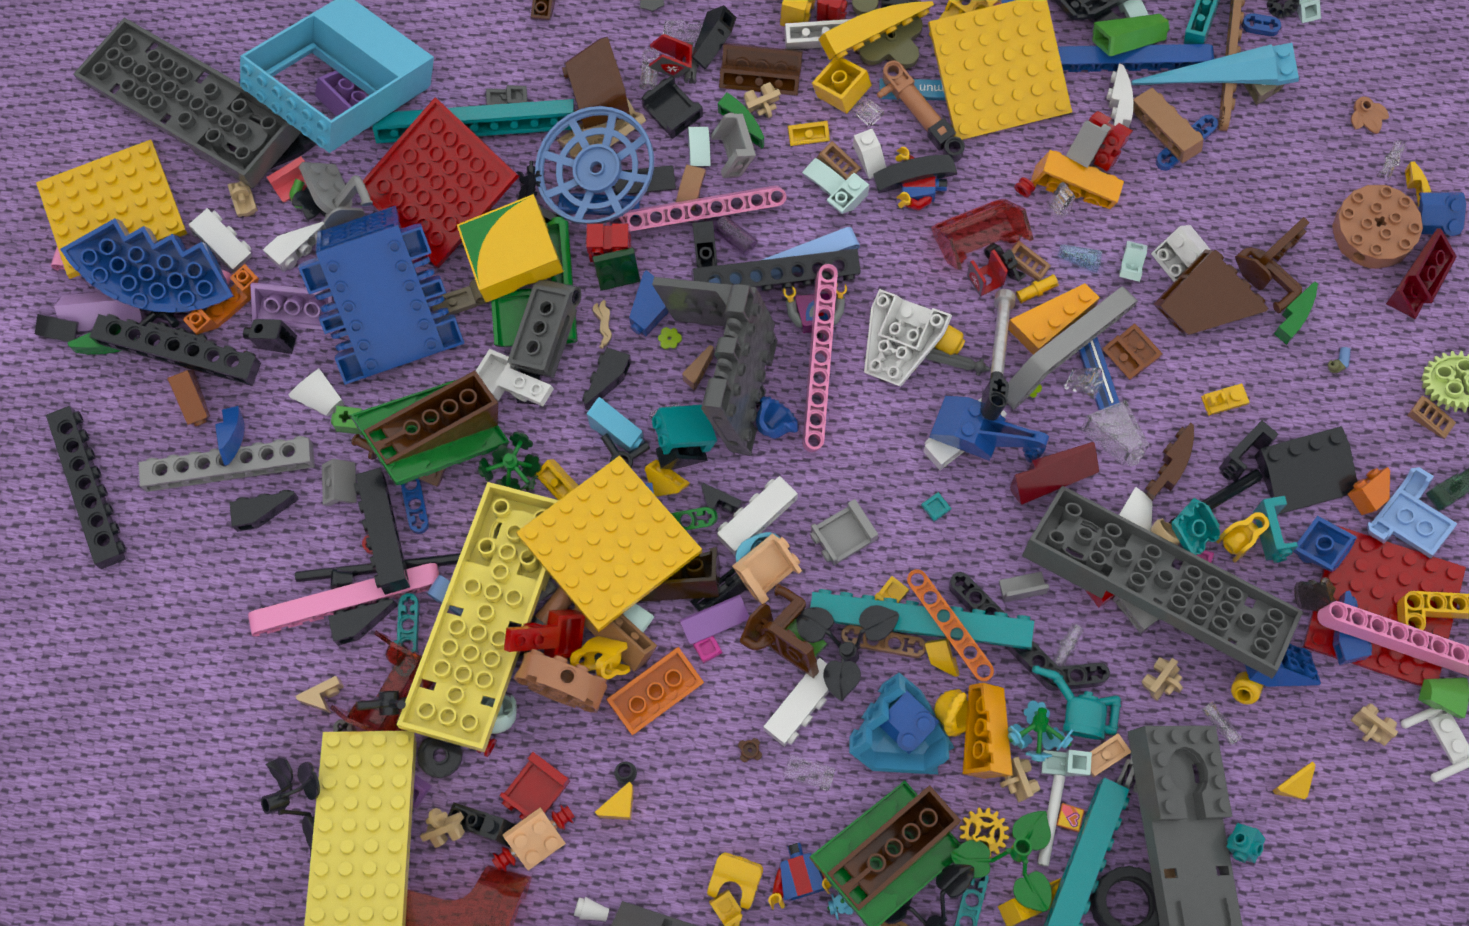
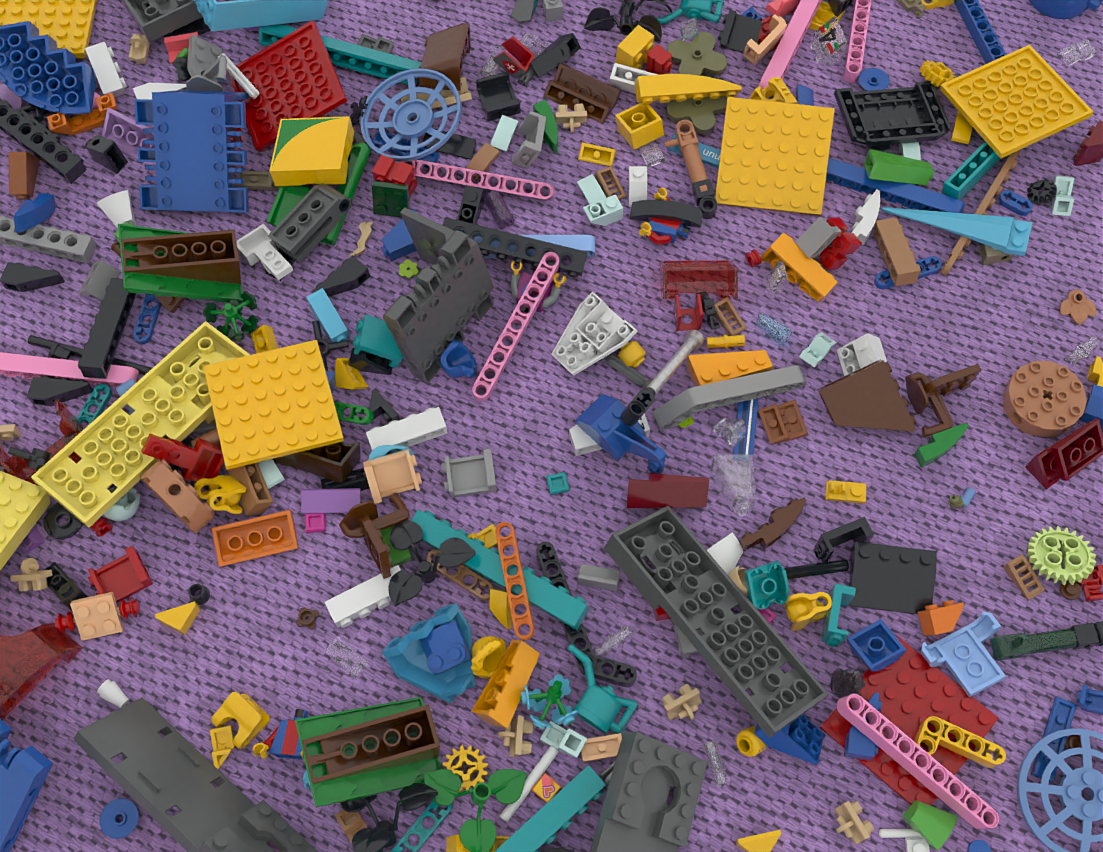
camera: 20 degrees right, 5 degrees down
(379, 192) = (241, 79): none -> white axle

